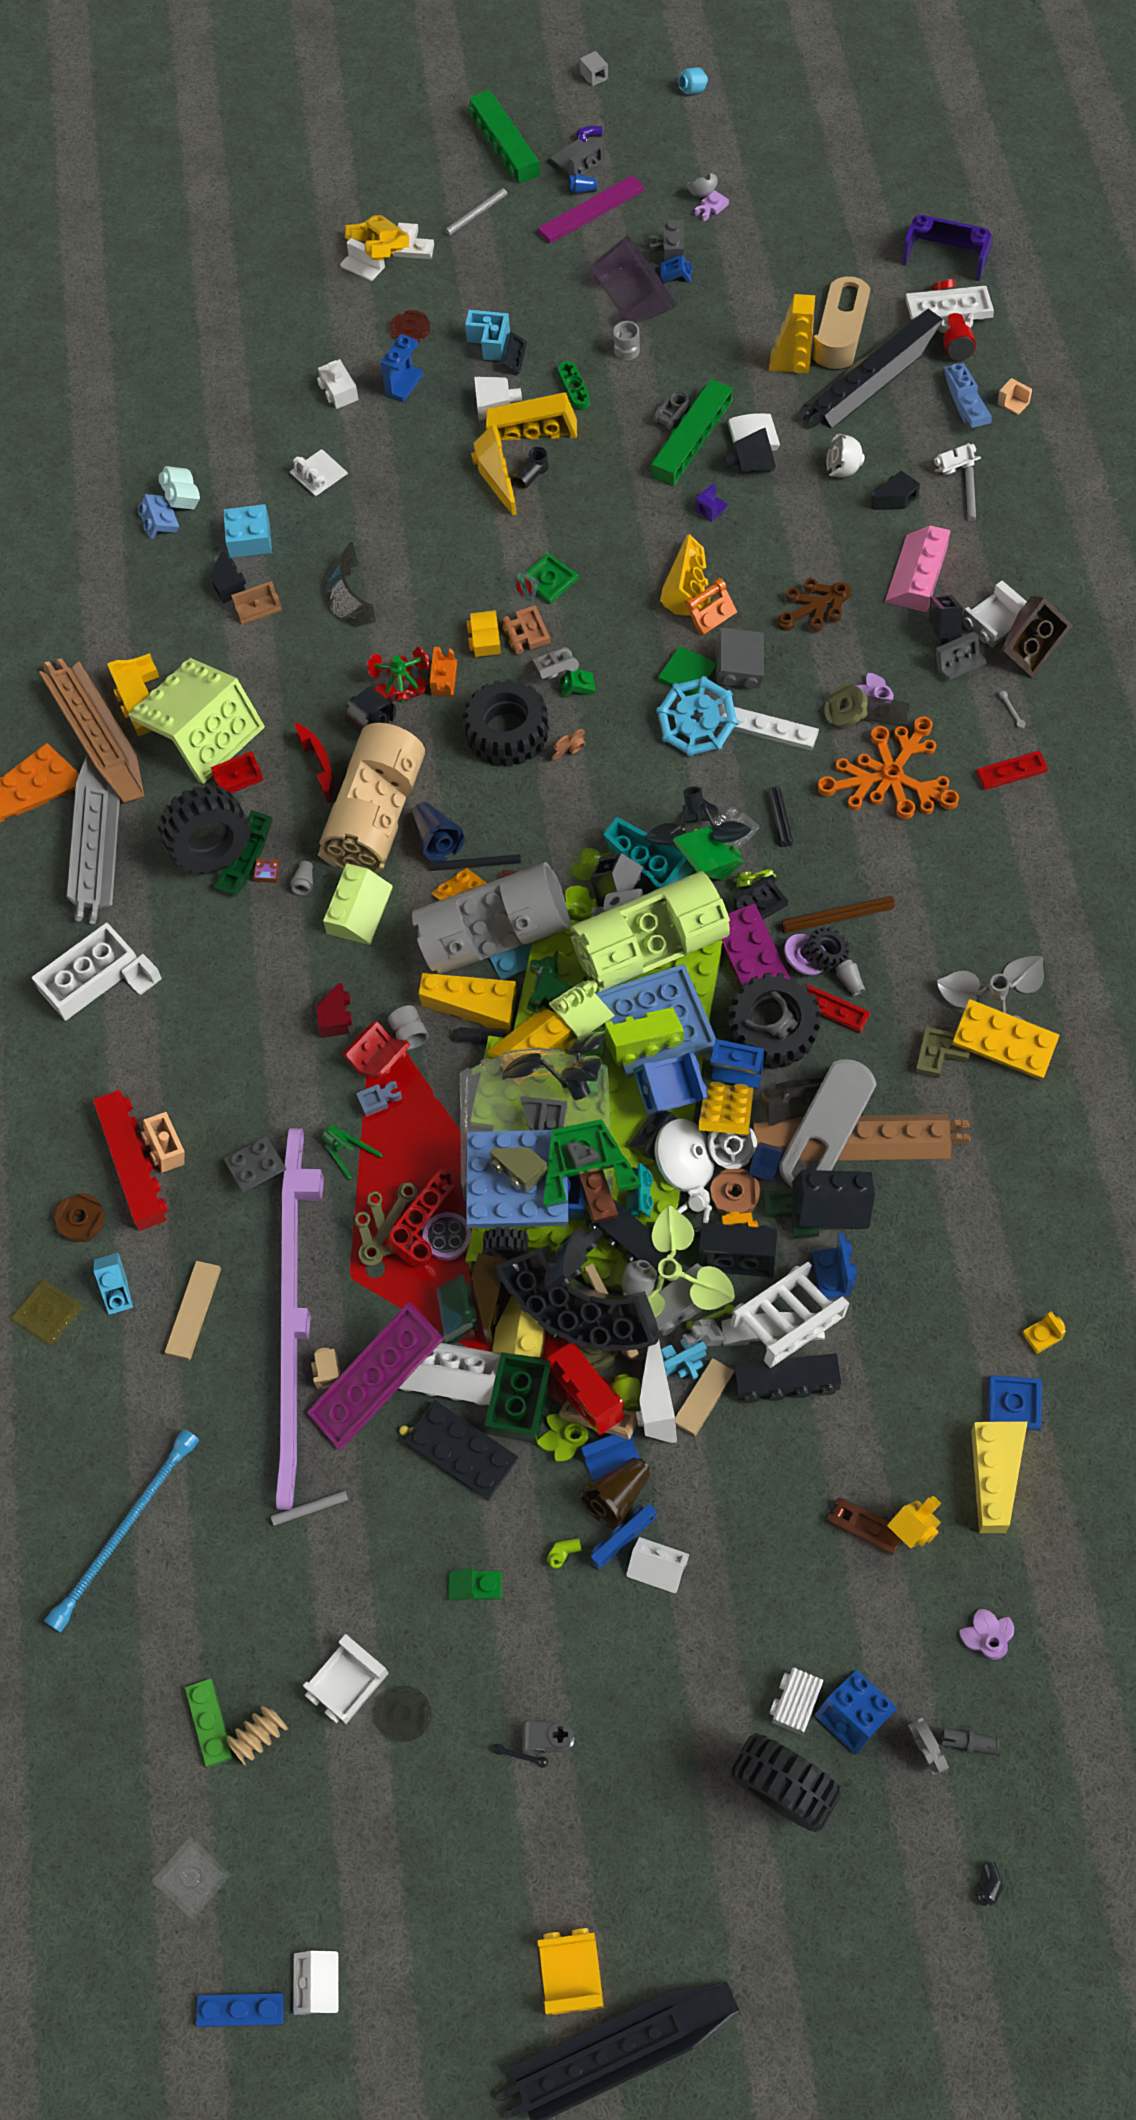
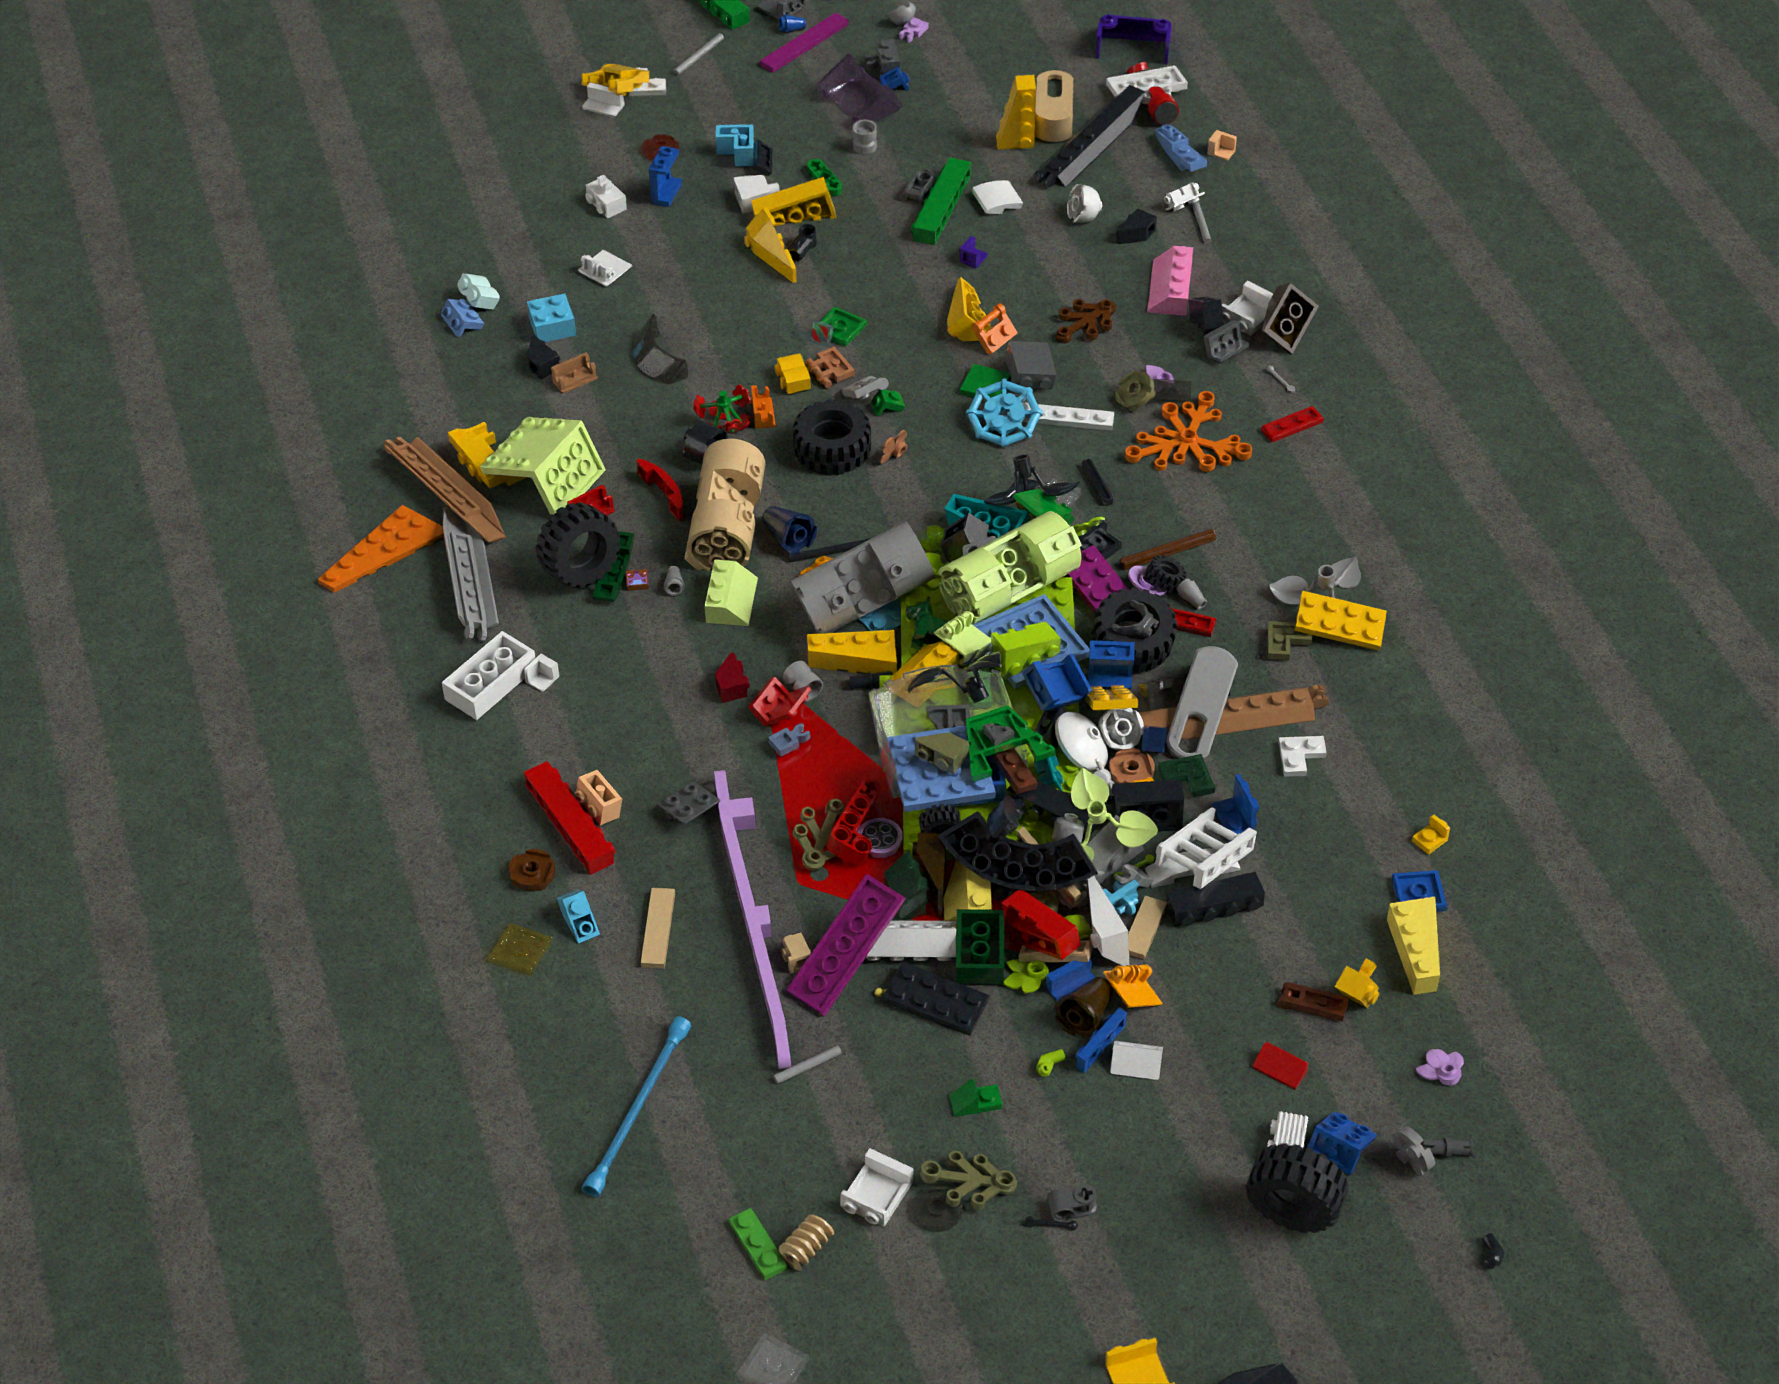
camera: 15 degrees left, 15 degrees down
(337, 1140) = (757, 776): green plant -> none
(448, 1687) = (998, 1181): none -> olive plant
(672, 1475) = (1132, 985): none -> light orange hinge
(752, 454) = (1001, 210): black torso -> none
(810, 1602) = (1280, 1065): none -> red slope
(833, 1199) = (1221, 756): black slope -> none
(919, 1196) = (1295, 751): none -> white plate

